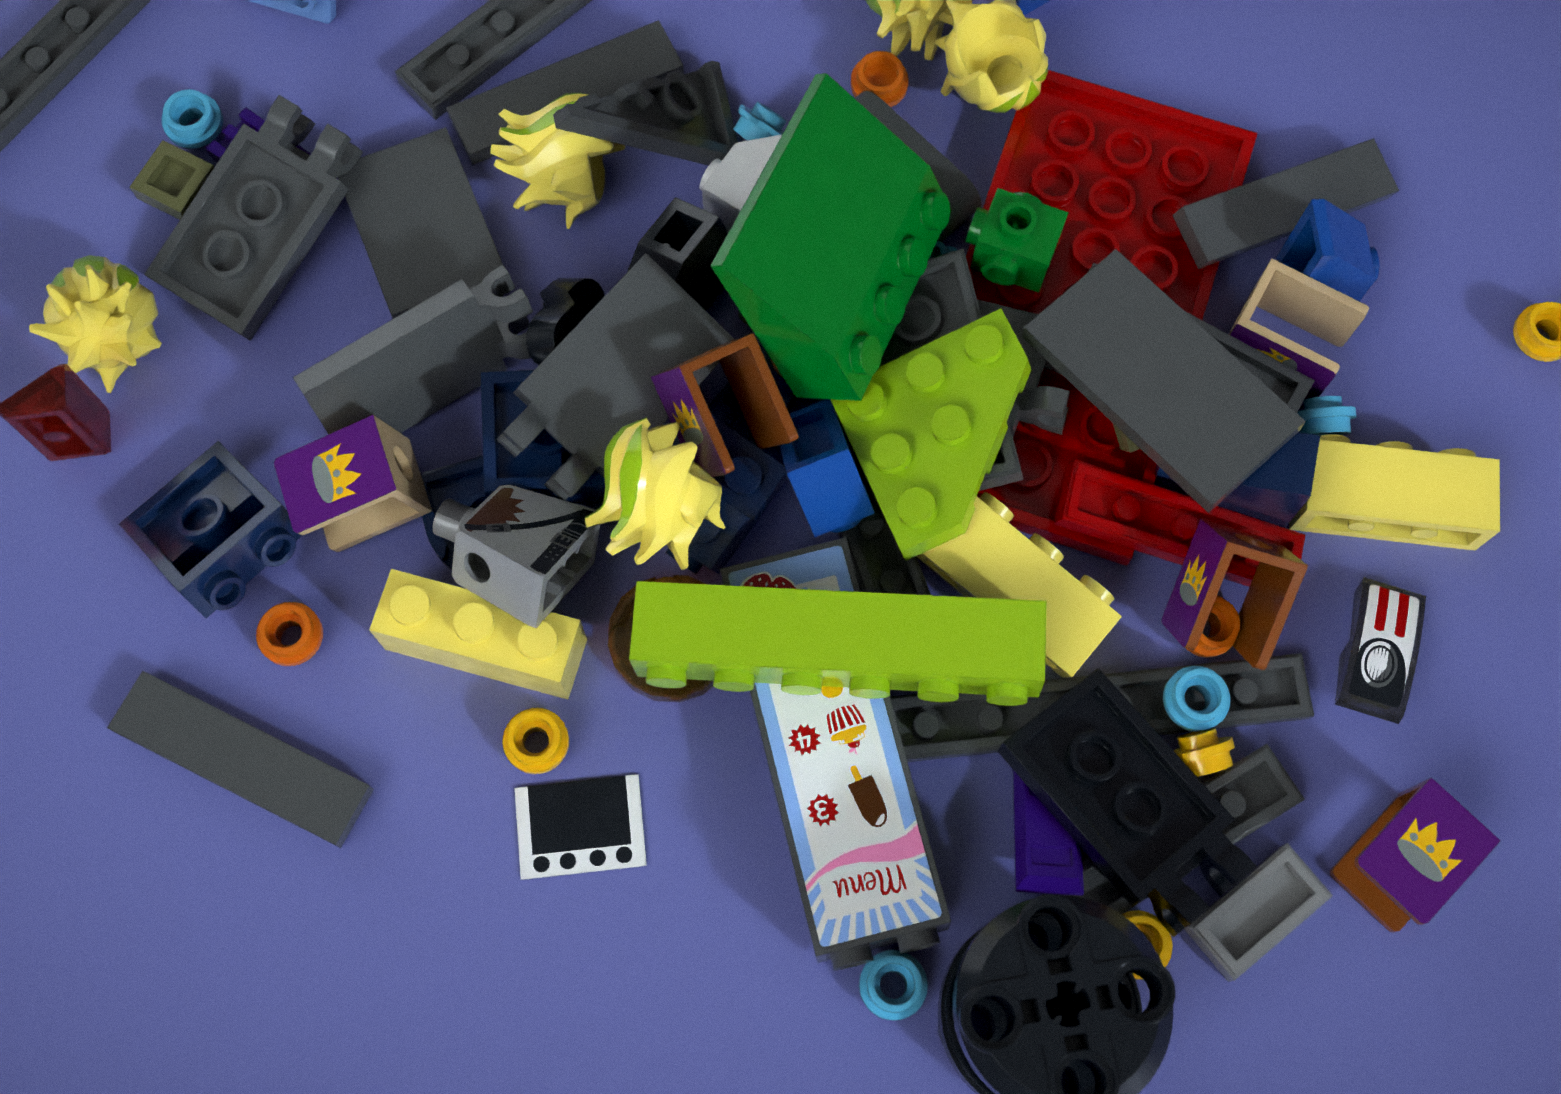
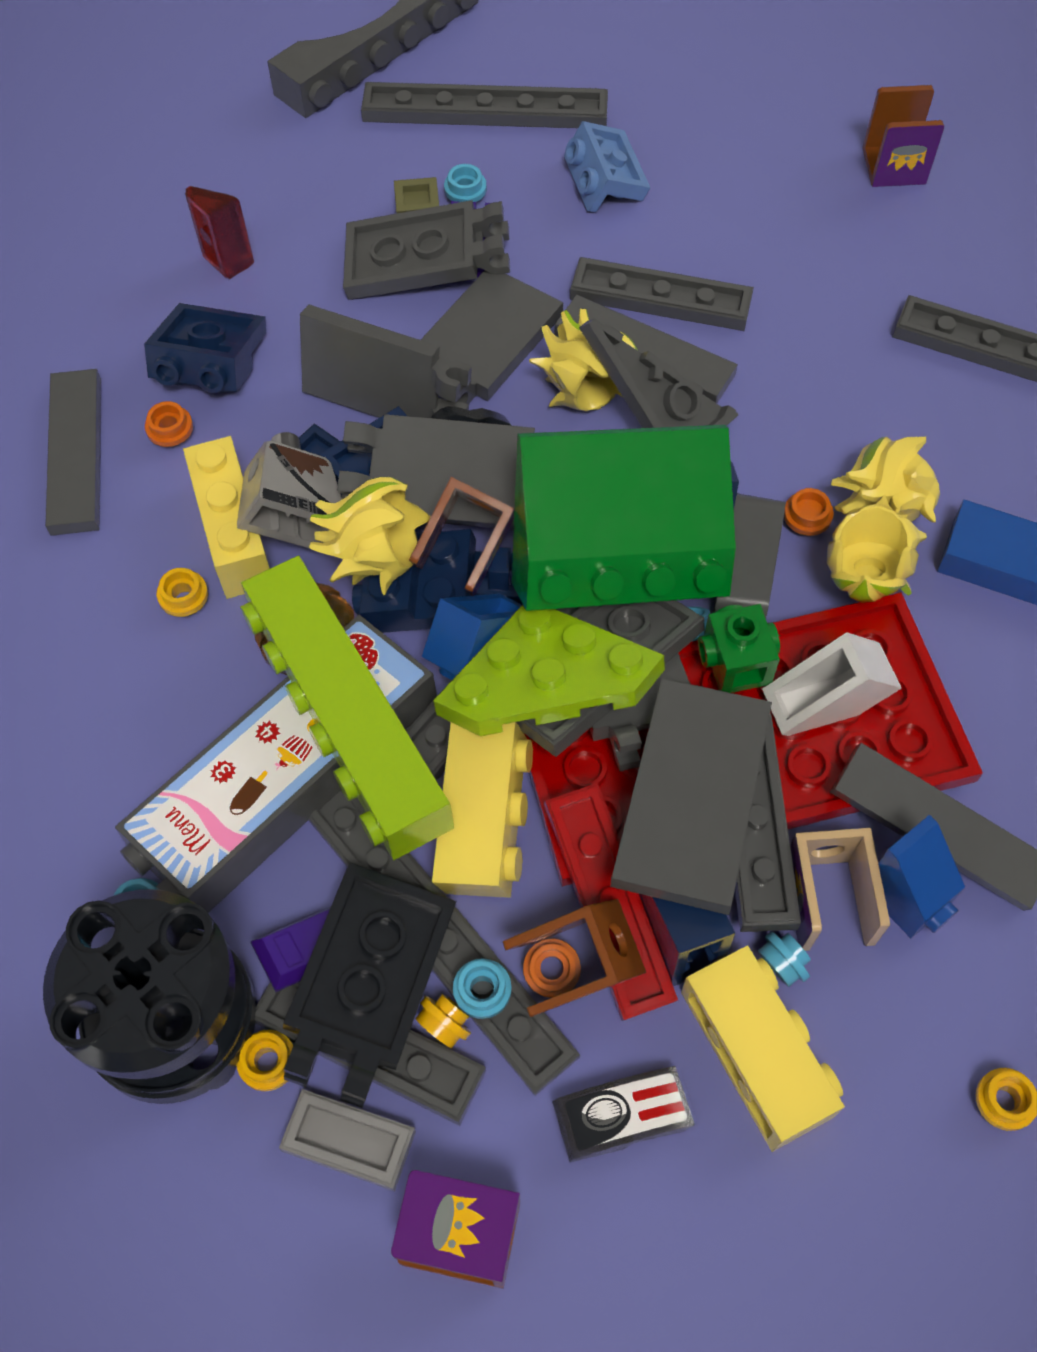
camera: 60 degrees right, 10 degrees down
(99, 317) = (296, 213): light yellow hair -> none
(352, 483) = (282, 384): piece -> none
(580, 827) = (143, 656): black sticker -> none
(1105, 191) = (832, 685): none -> white slope

